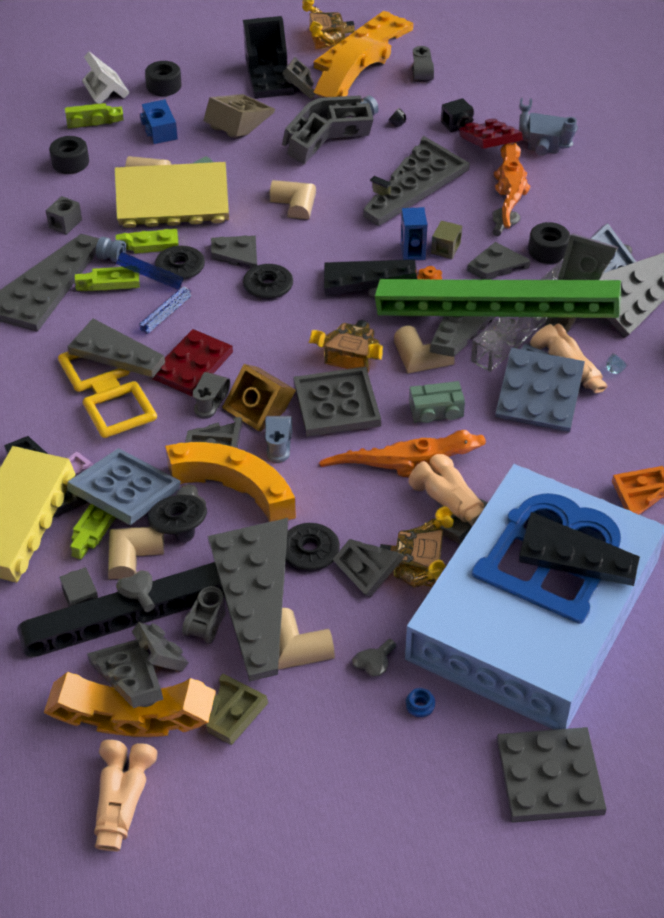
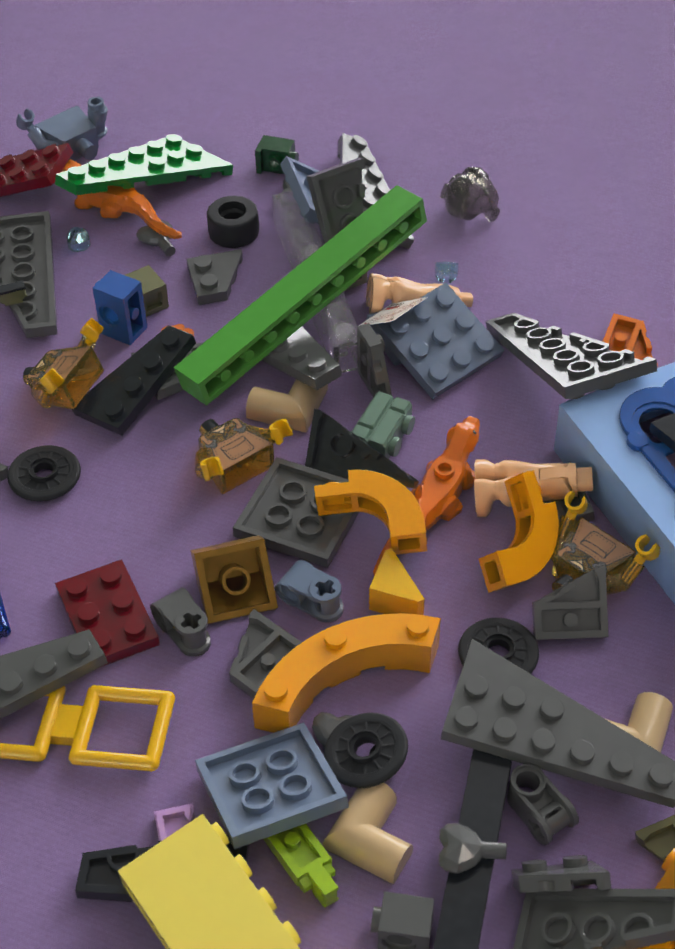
camera: 55 degrees left, 0 degrees up
(312, 470) = (393, 589): none -> yellow slope
(340, 243) = (66, 373): none -> torso
(361, 439) = (380, 497): none -> light orange arch
(393, 396) = (337, 450): none -> black wing
(393, 520) = (533, 539): none -> light orange arch
(464, 189) = (78, 239): none -> clear light blue hinge
(481, 367) = (372, 360): none -> dark grey wing
(528, 349) = (393, 311): none -> white sticker
(548, 176) = (155, 163): none -> wing
(569, 450) = (565, 362): none -> dark grey wing
(633, 227) = (272, 152): none -> dark green brick

